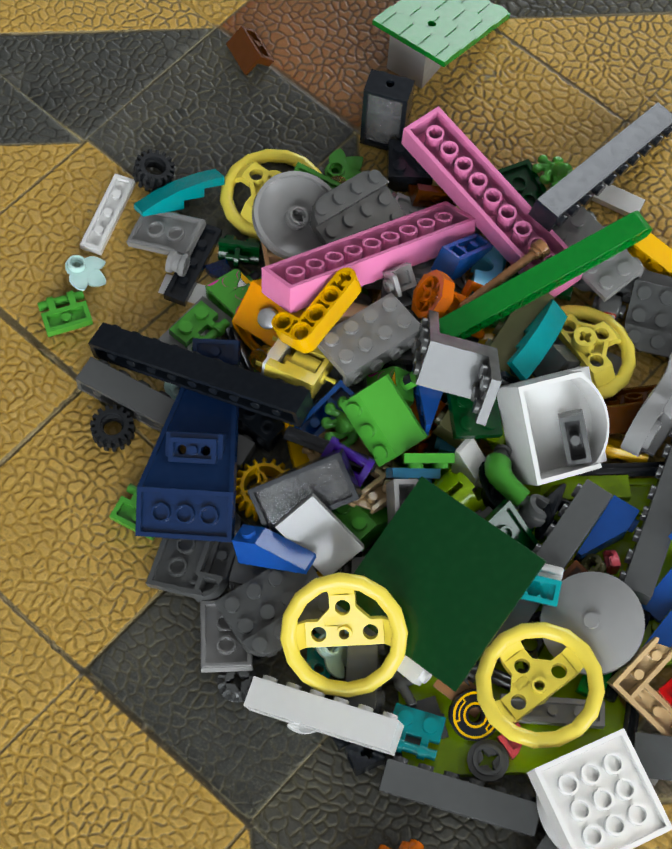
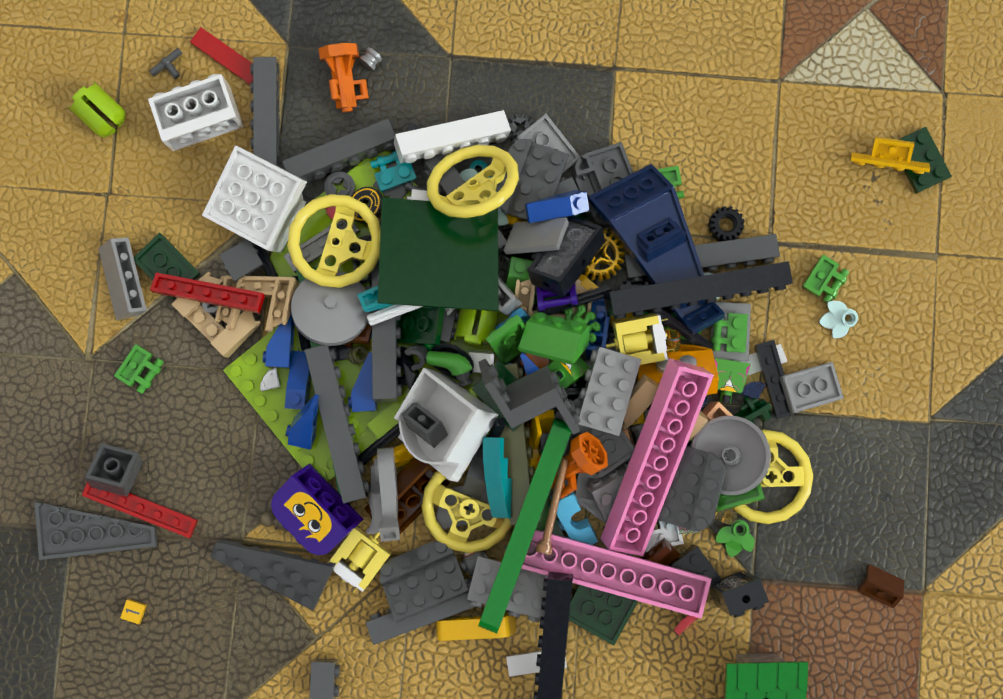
camera: 145 degrees right, 20 degrees up
(107, 214) = (863, 375): white tile -> none
(157, 161) = (866, 439): black tyre -> none
(172, 196) = (829, 425): teal slope -> none
(177, 263) = (782, 365): light grey wheel -> none
(321, 315) = (652, 379): yellow beam -> none
(399, 279) = (622, 453): light grey bracket -> none
(461, 255) = (596, 511): blue slope -> none
(553, 171) = (584, 648): bright green animal -> none
(612, 561) = (349, 368): coral tile -> none

